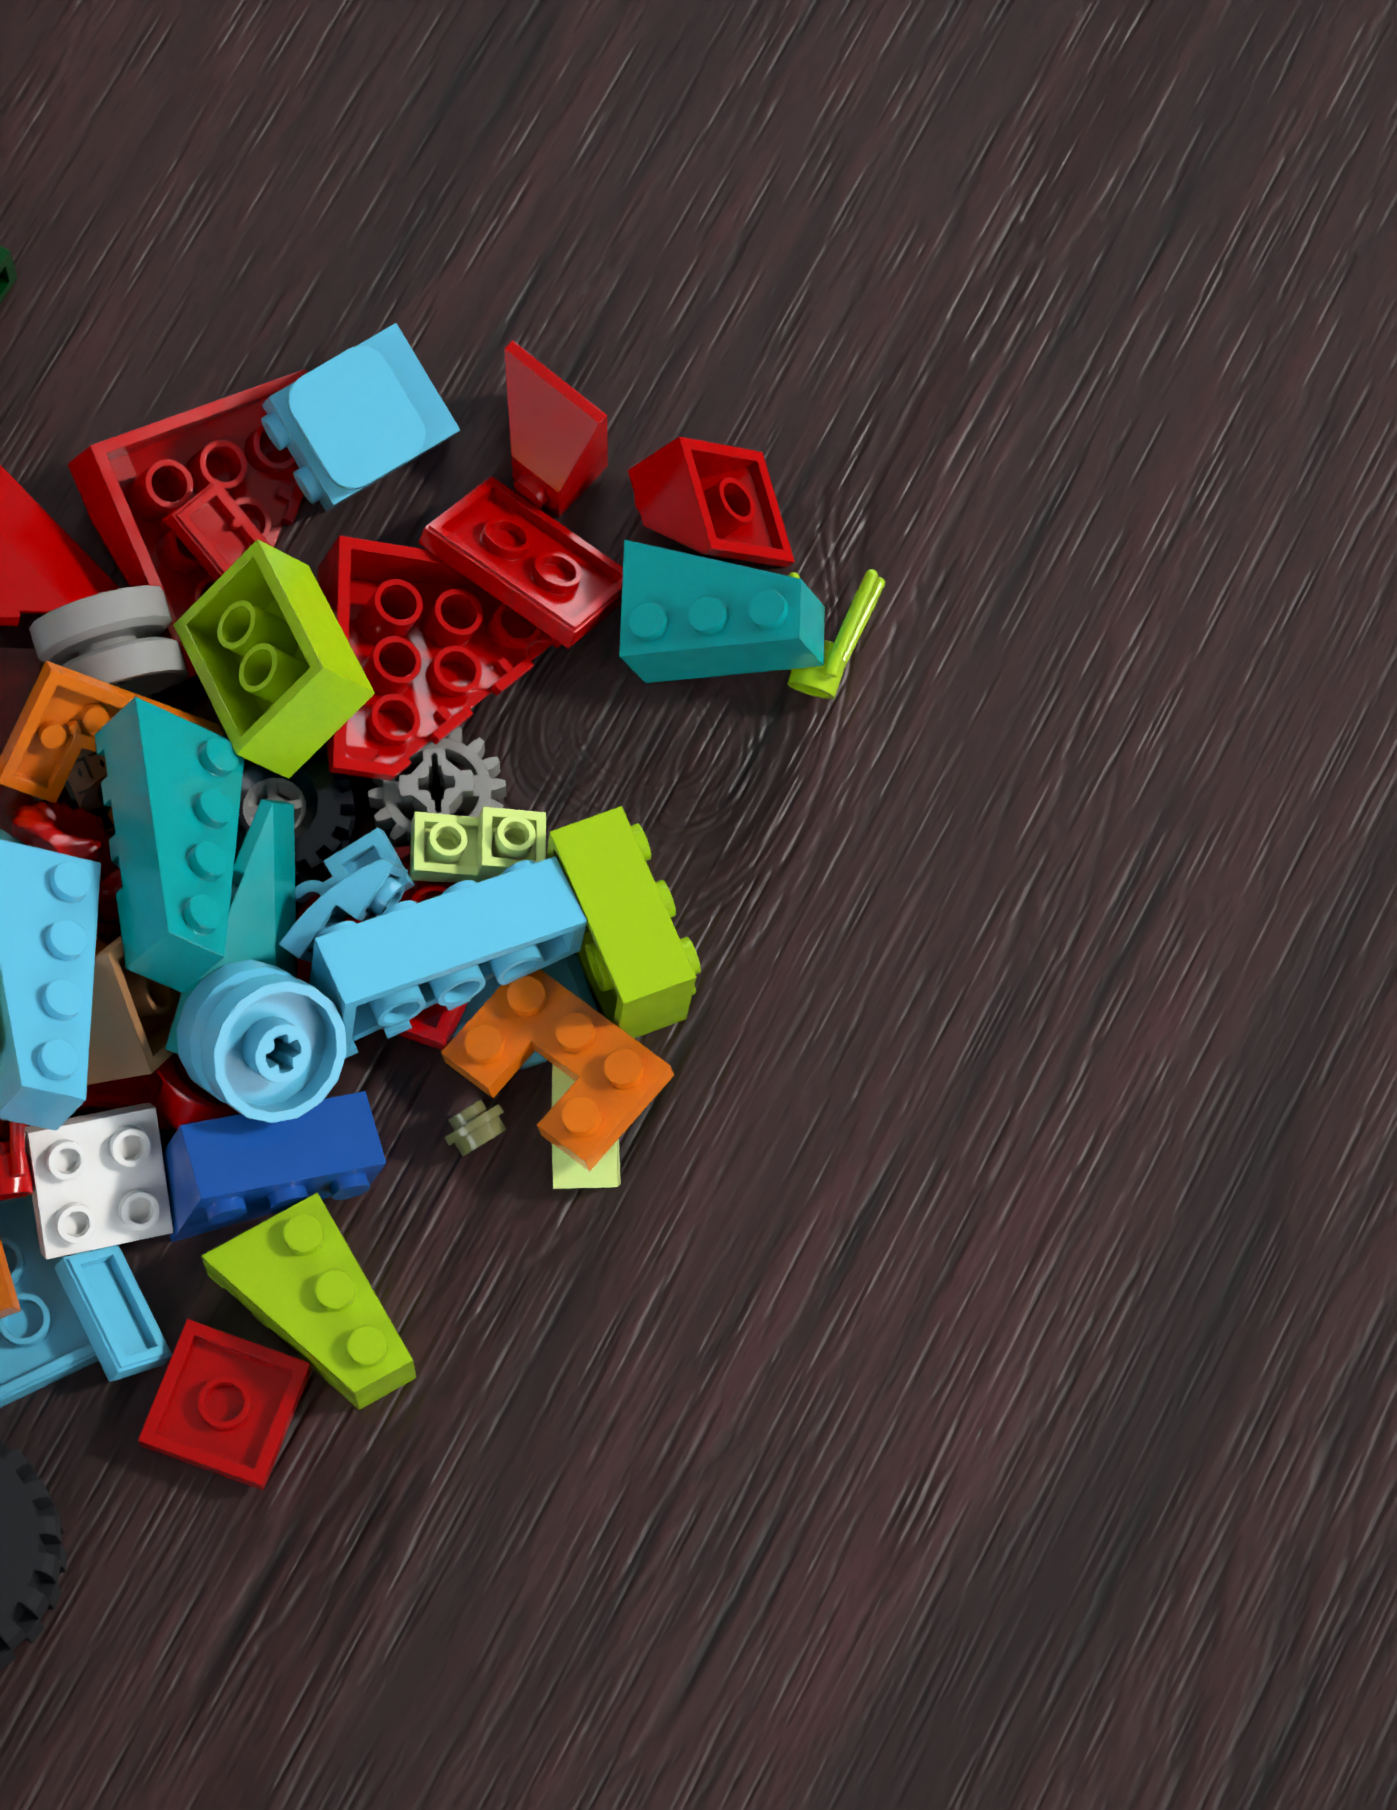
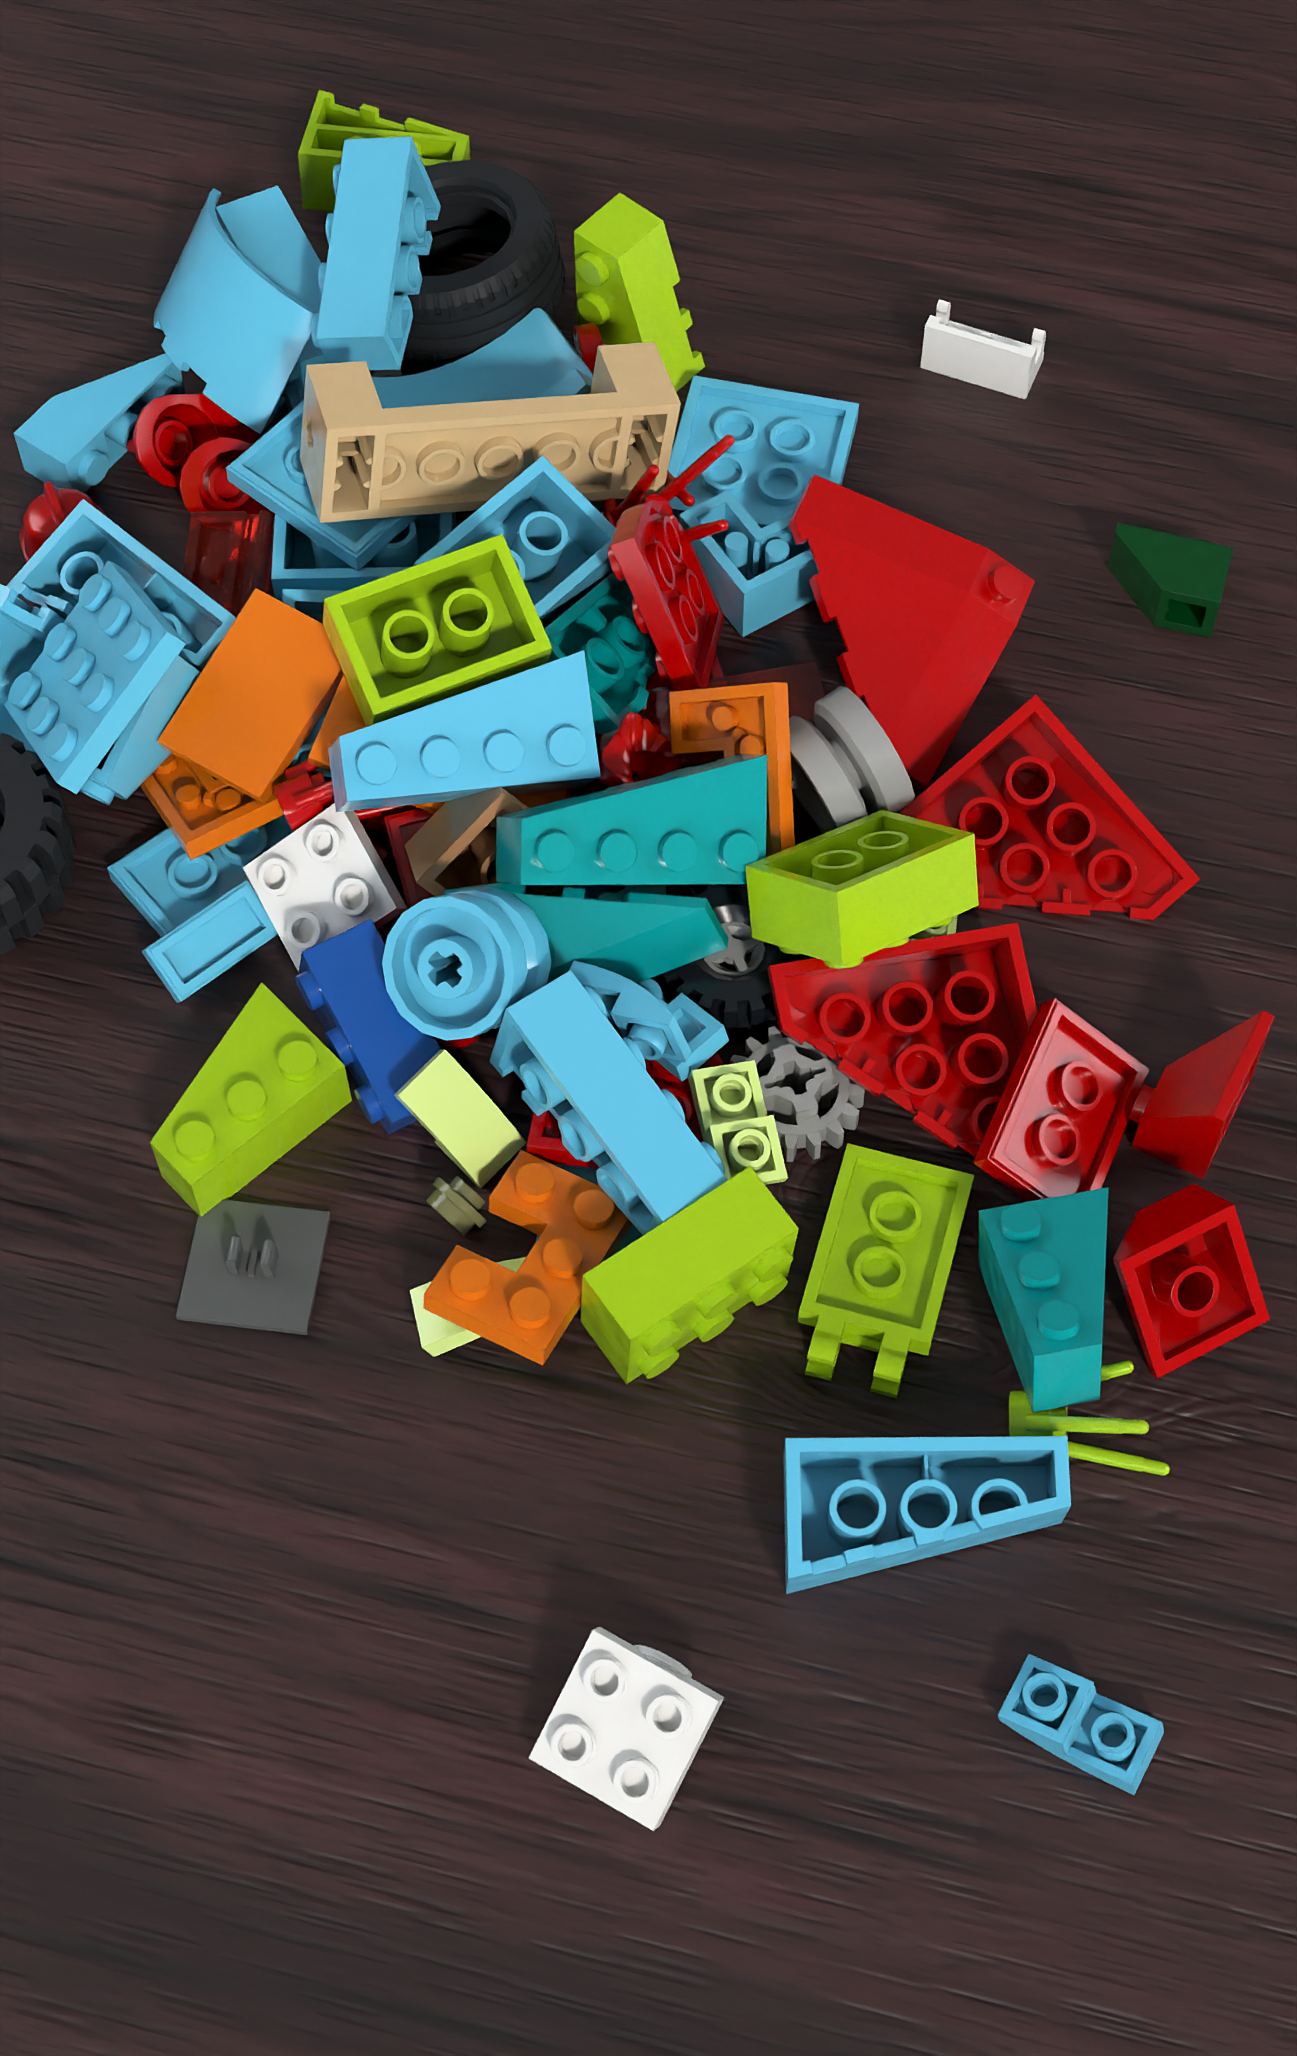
camera: 80 degrees right, 10 degrees down
(214, 529) = (1001, 829): red plate -> none
(225, 1404) = (136, 1051): red plate -> none
(358, 418) = (1160, 926): medium azure brick -> none
(394, 1099) = (461, 1118): none -> yellowish green slope
(481, 1335) = (254, 1267): none -> dark grey piece
(620, 749) = (883, 1261): none -> lime tile
(871, 812) = (906, 1499): none -> medium azure wedge
(1020, 1079) = (627, 1726): none -> white plate
(1092, 714) = (1079, 1725): none -> medium azure slope

